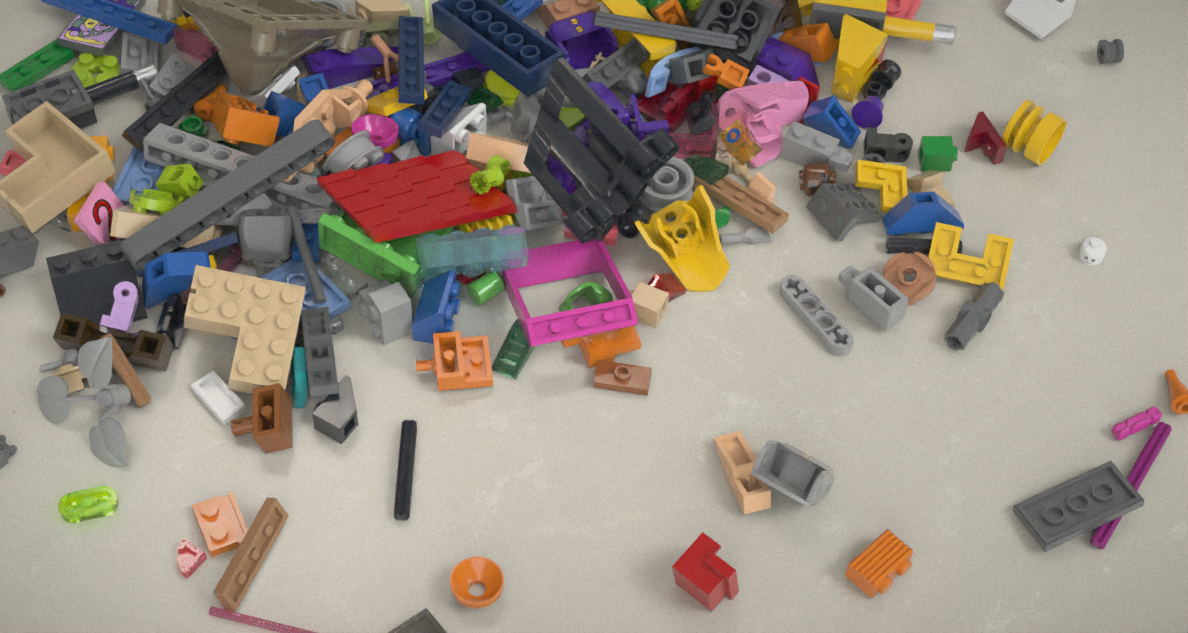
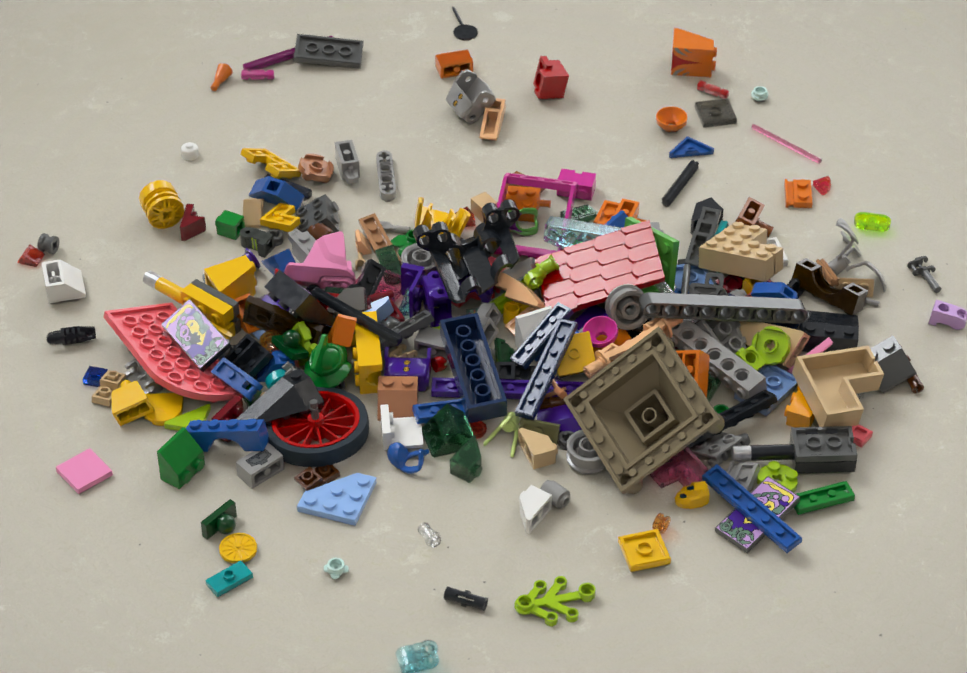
camera: 150 degrees left, 10 degrees down
(123, 309) = (819, 302): lavender leg -> none
(250, 554) = (784, 171): medium nougat plate -> none
(423, 551) = (690, 147): none -> blue tile
(548, 393) = (585, 187): none -> dark pink brick
(729, 74) = (336, 279): orange plate -> none
(740, 142) = (357, 256): clear yellow brick -> none
(974, 316) = (296, 141): dark grey piece -> none
(1115, 32) = (31, 256): none -> clear red slope

